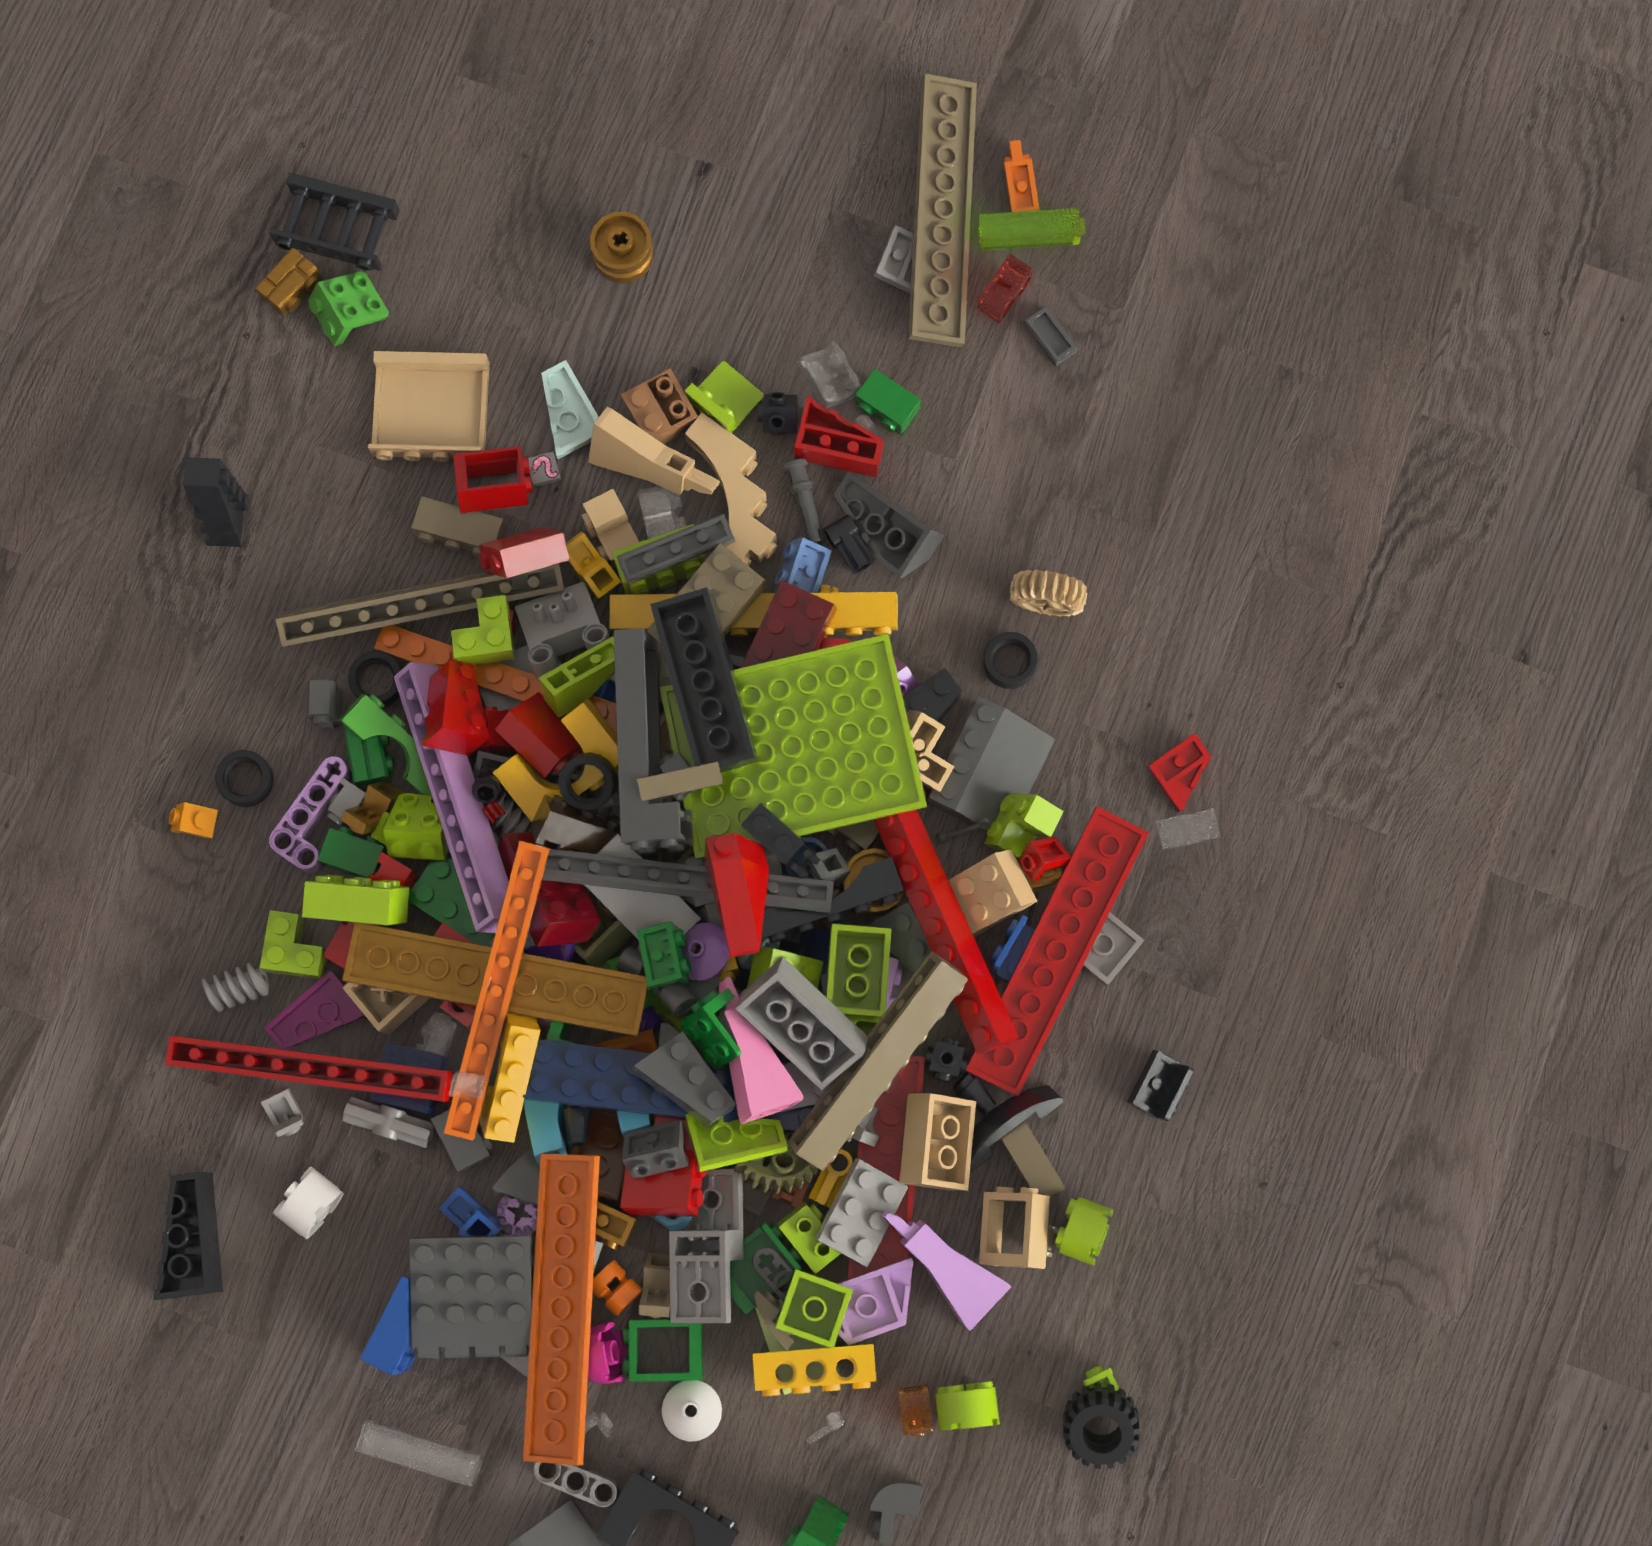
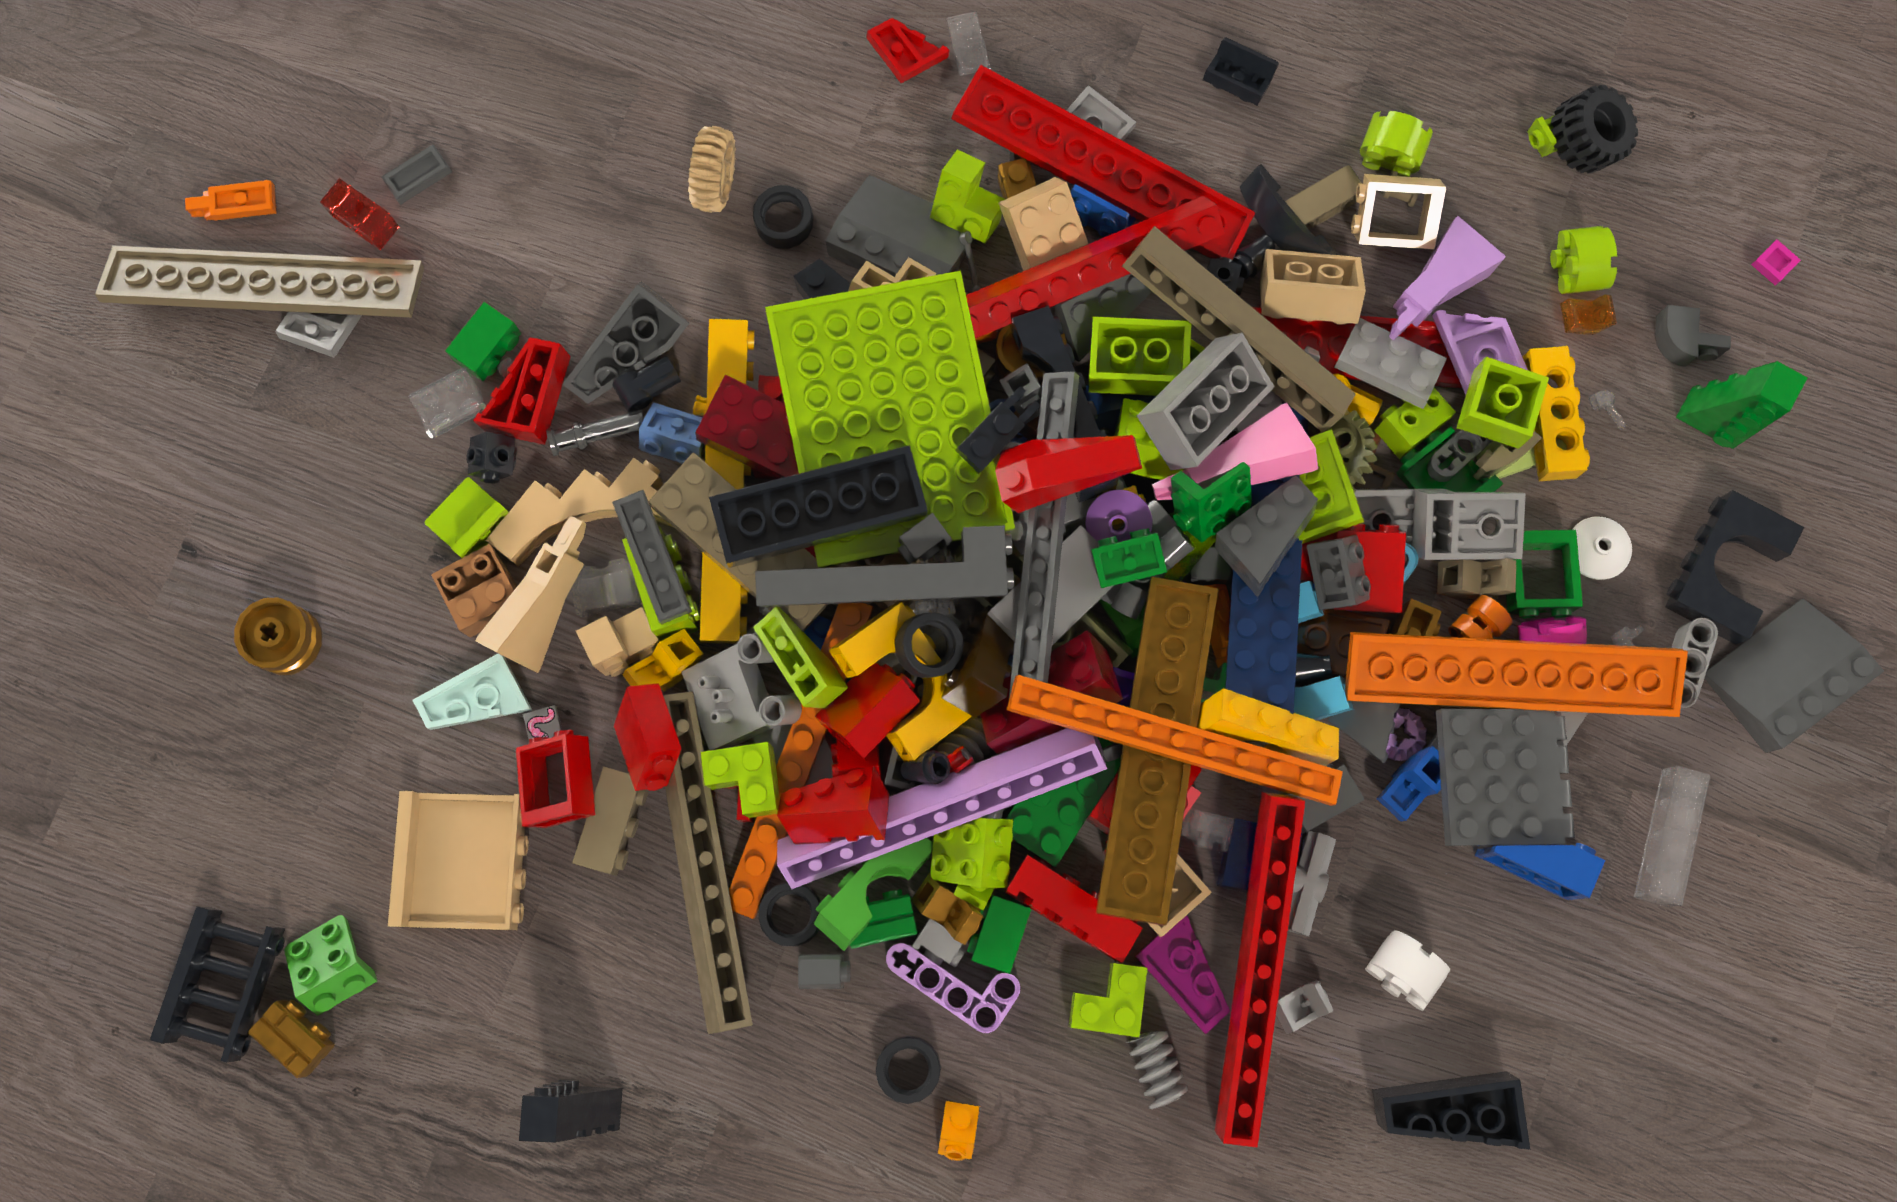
camera: 90 degrees left, 0 degrees up
(355, 900) = (1069, 915): lime brick -> none
(467, 1084) = (1285, 773): clear slope -> none
(679, 781) = (938, 528): dark tan sticker -> none
(1030, 229) = (291, 191): clear neon green brick -> none
(1043, 855) = (1008, 171): red bracket -> none

